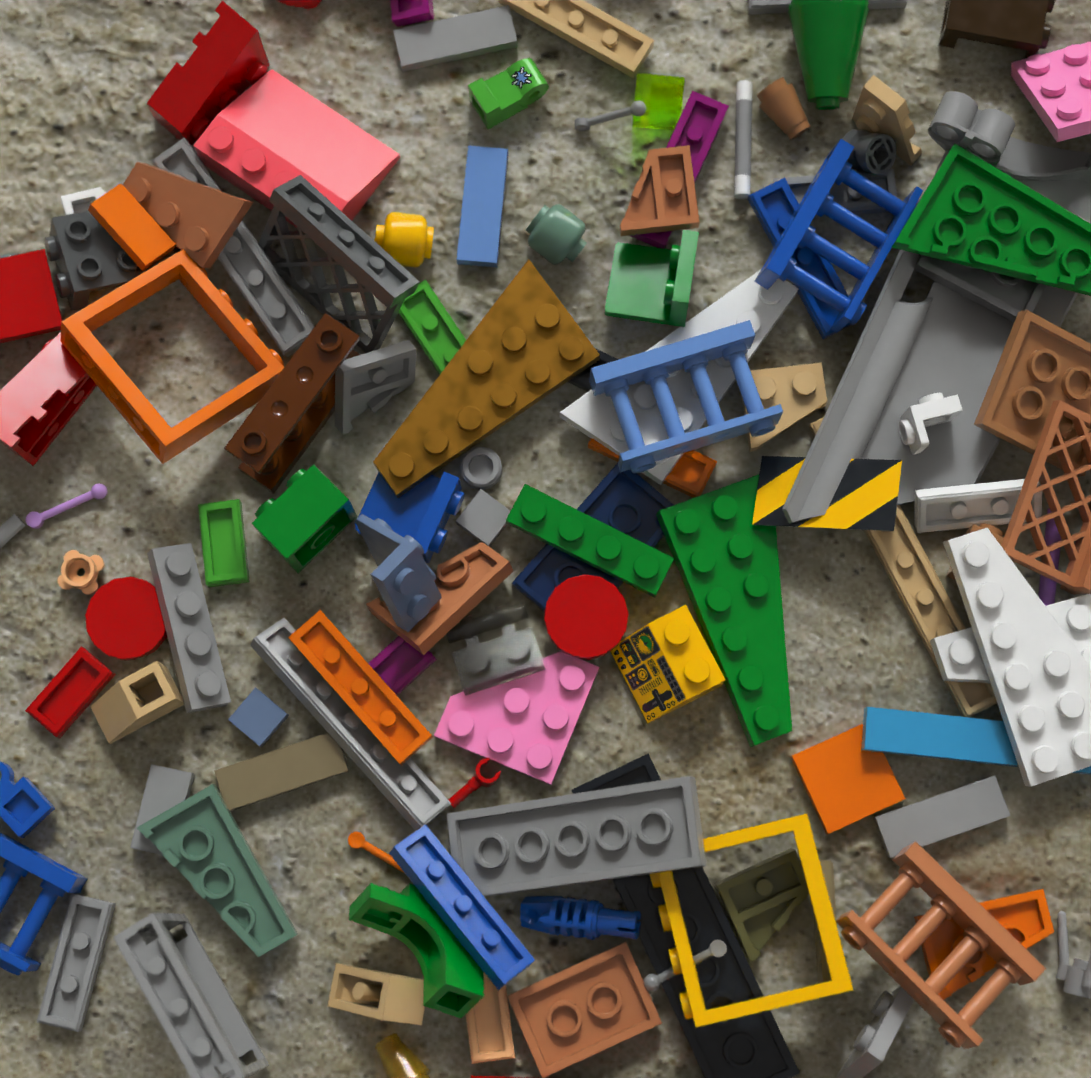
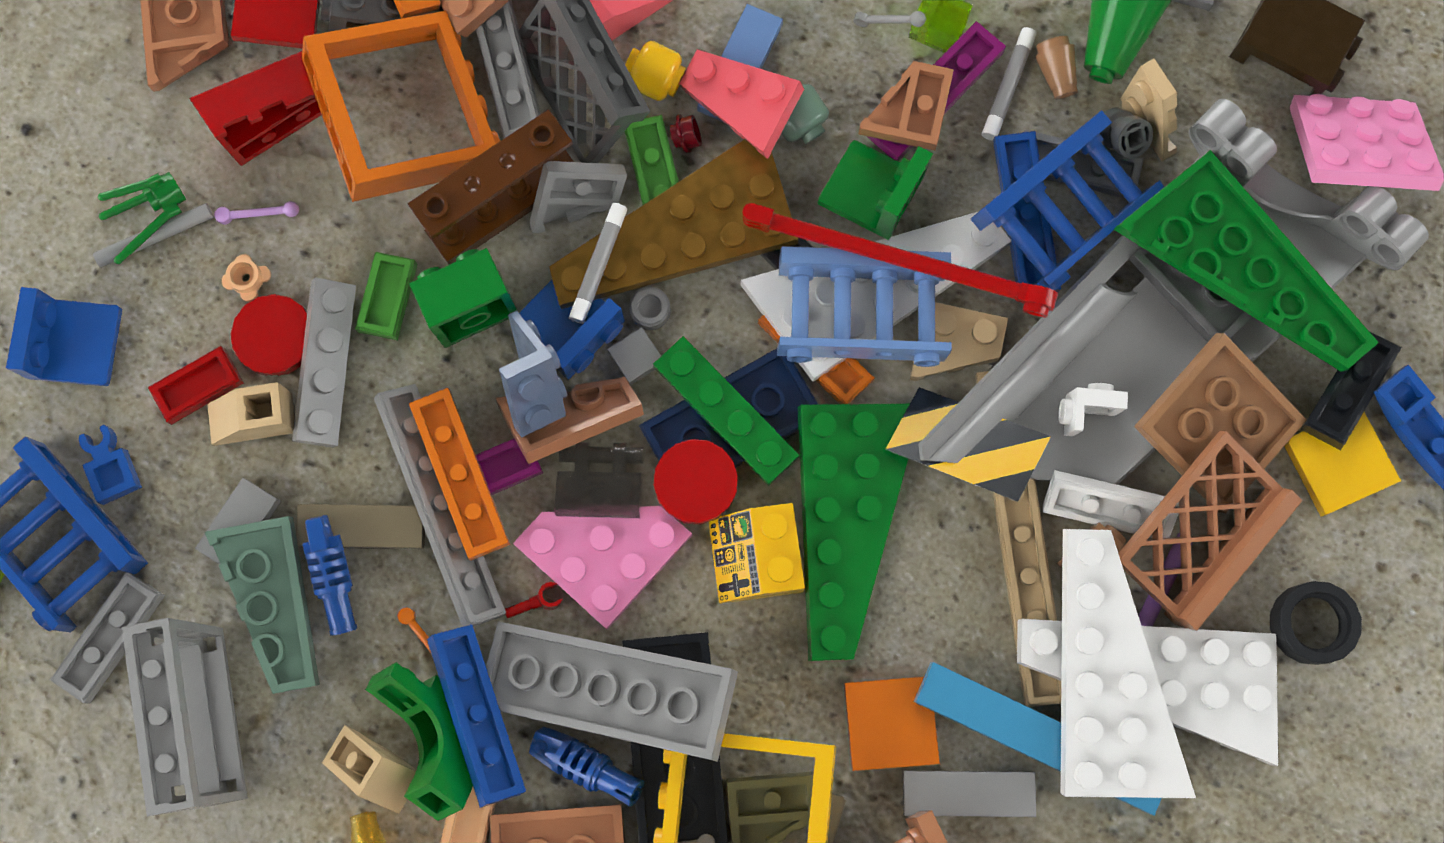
camera: 20 degrees right, 0 degrees up
(258, 717) = (358, 469): sand blue tile -> none
(271, 826) = (329, 574): none -> blue hinge
(420, 442) = (598, 263): none -> light grey bar
(455, 289) = (686, 133): none -> dark red plate
(500, 237) = (743, 97): none -> coral wing
(844, 337) = (1036, 298): none -> red hinge

